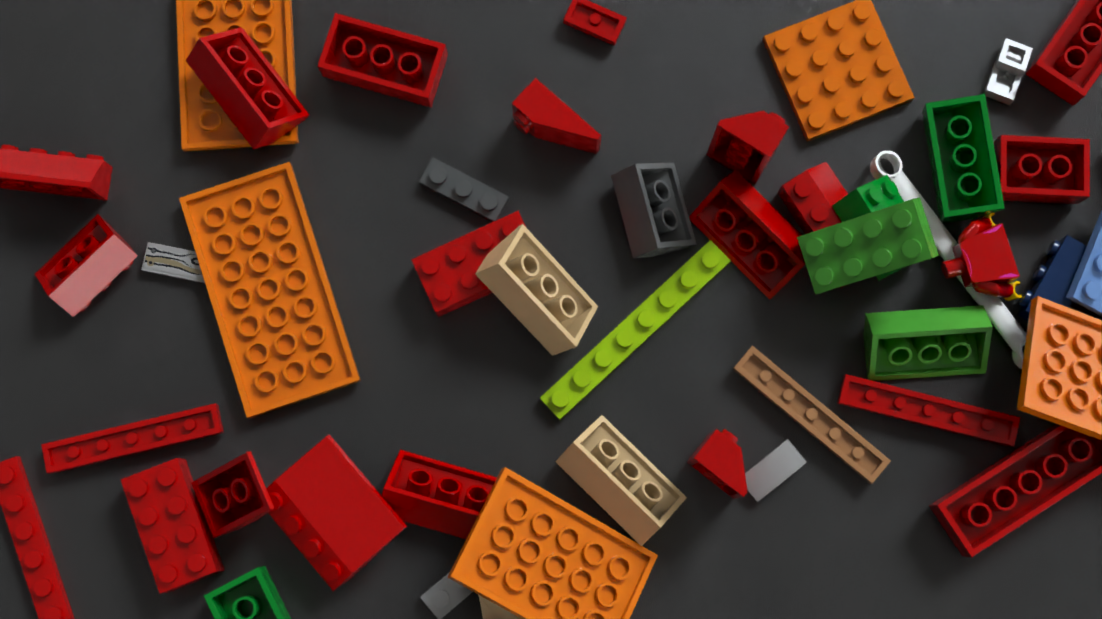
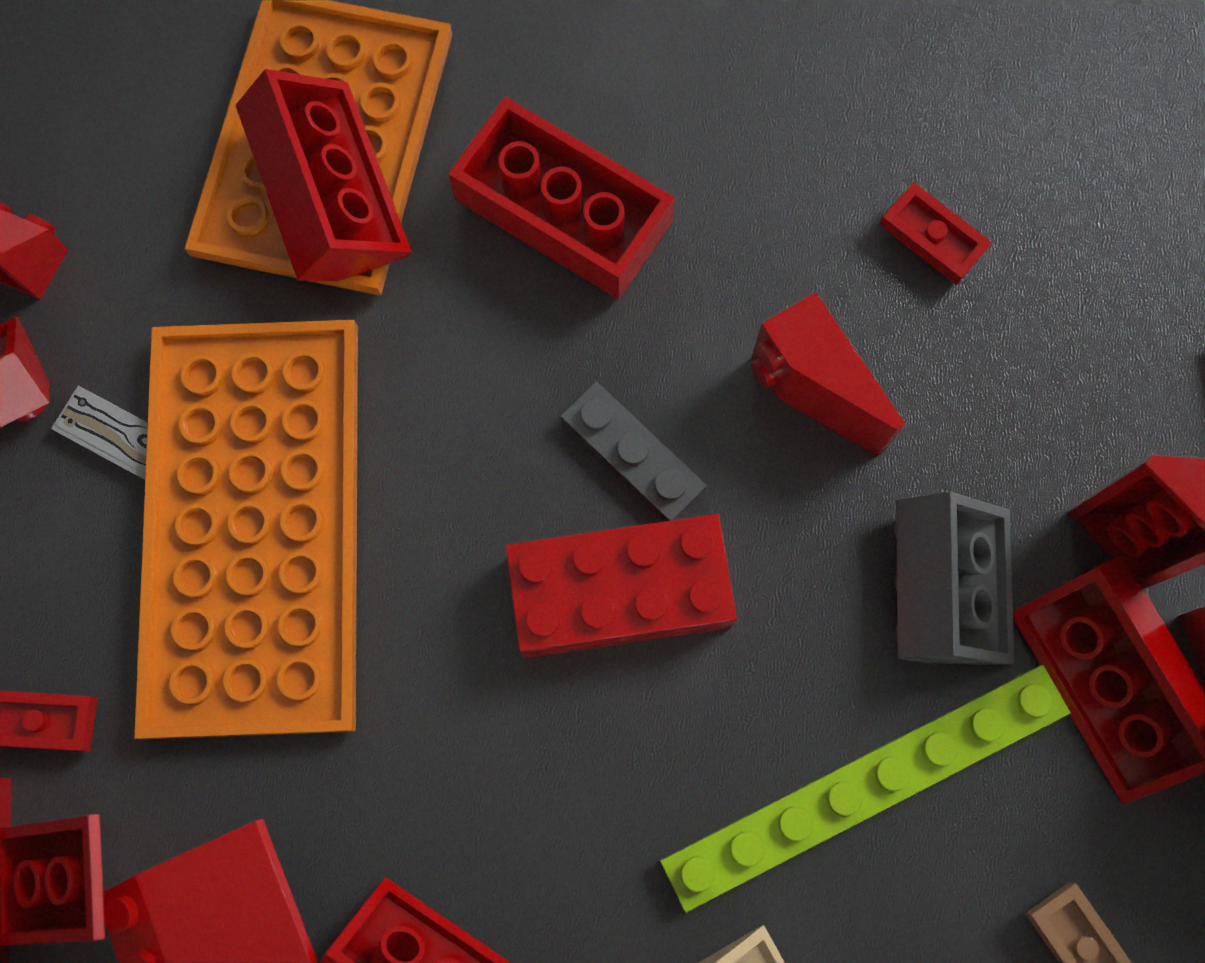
camera: 15 degrees right, 5 degrees down
(537, 291) = (713, 668): tan slope -> none

